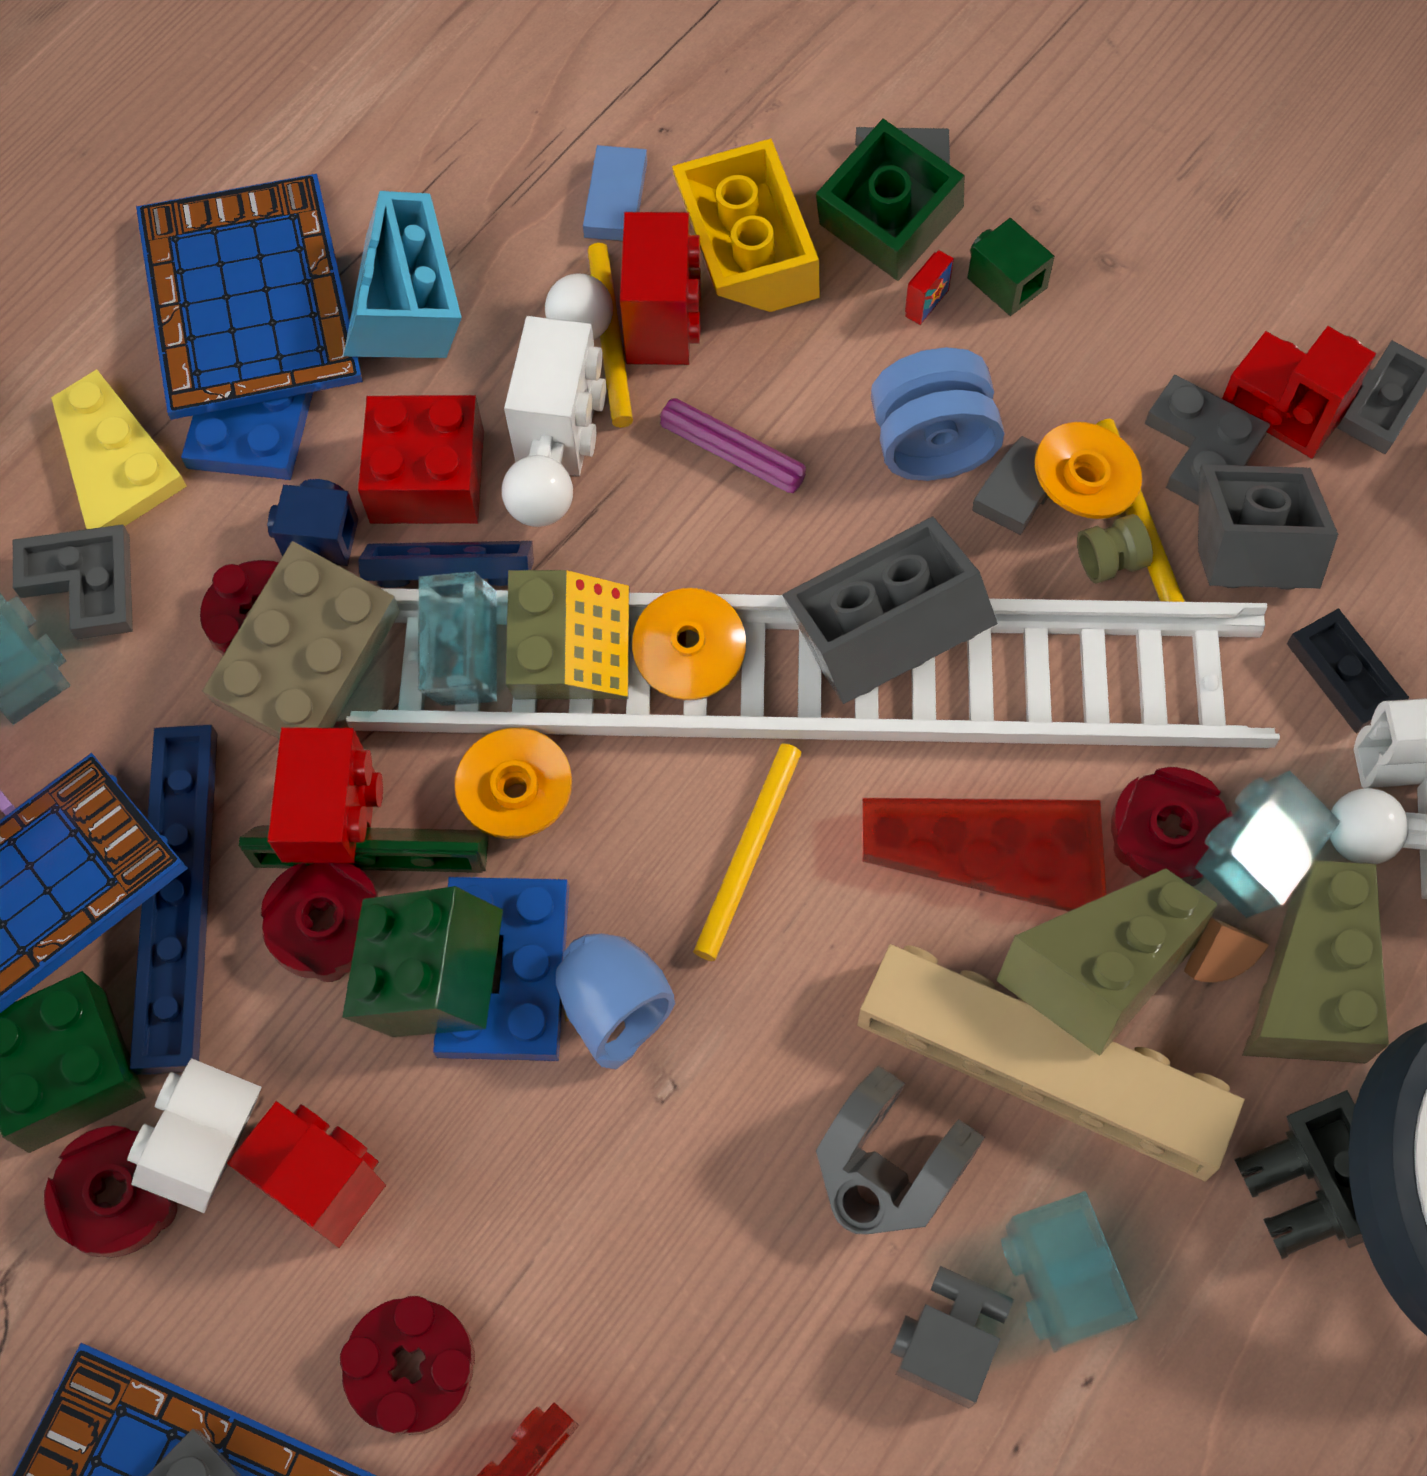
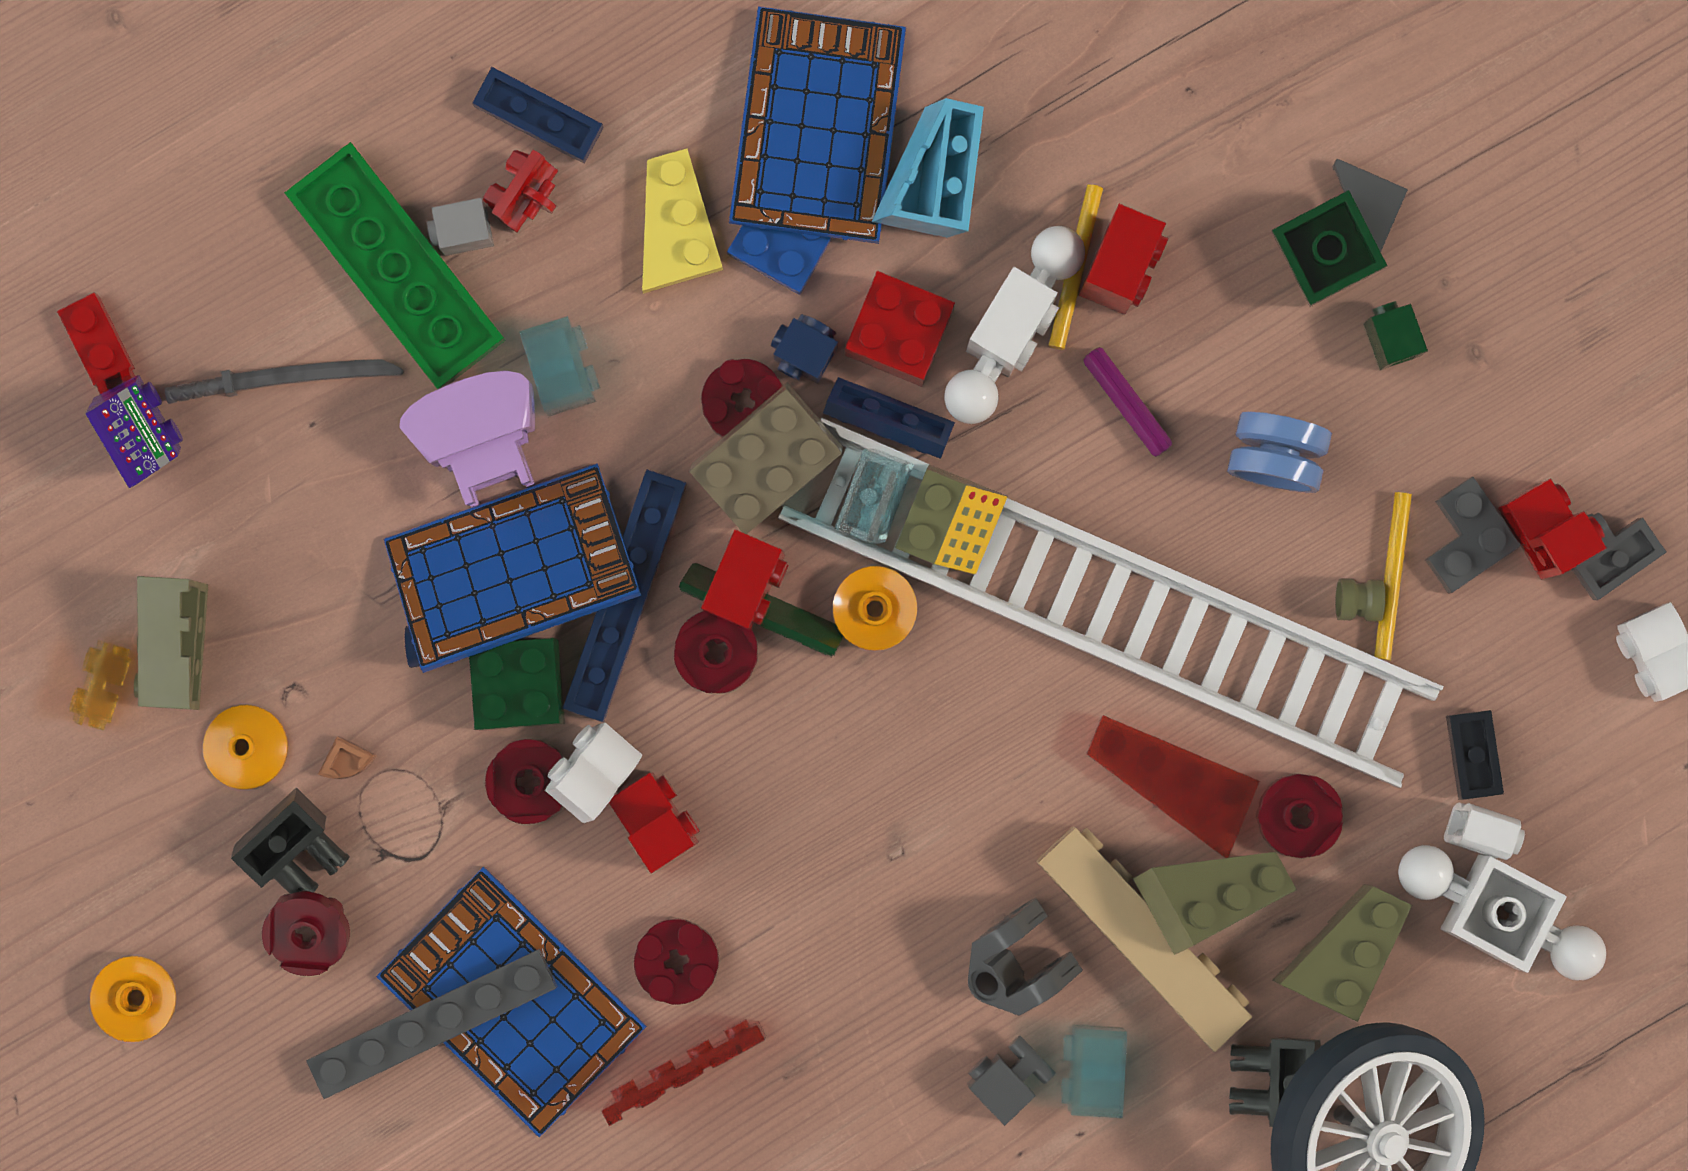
camera: 20 degrees right, 20 degrees up
(89, 566) = (636, 314): dark grey plate -> none
(423, 963) = (772, 719): dark green brick -> none
(528, 1009) = (851, 710): blue plate -> none
(611, 982) = (884, 784): medium blue piece -> none
(614, 189) = (1128, 140): medium blue tile -> none
(695, 670) = (1038, 531): light orange dish -> none
(747, 852) = (1013, 715): yellow bar -> none
(750, 227) = (1211, 229): yellow slope -> none
(891, 609) = (1178, 590): dark grey slope -> none
(928, 286) = (1326, 329): red tile -> none
(1012, 489) = (1320, 519): dark grey slope -> none
(1092, 454) = (1387, 534): light orange dish -> none
(1224, 953) = (1291, 914): nougat tile -> none
(1263, 527) = (1470, 627): dark grey slope -> none
(1266, 843) = (1351, 859): clear light blue brick -> none

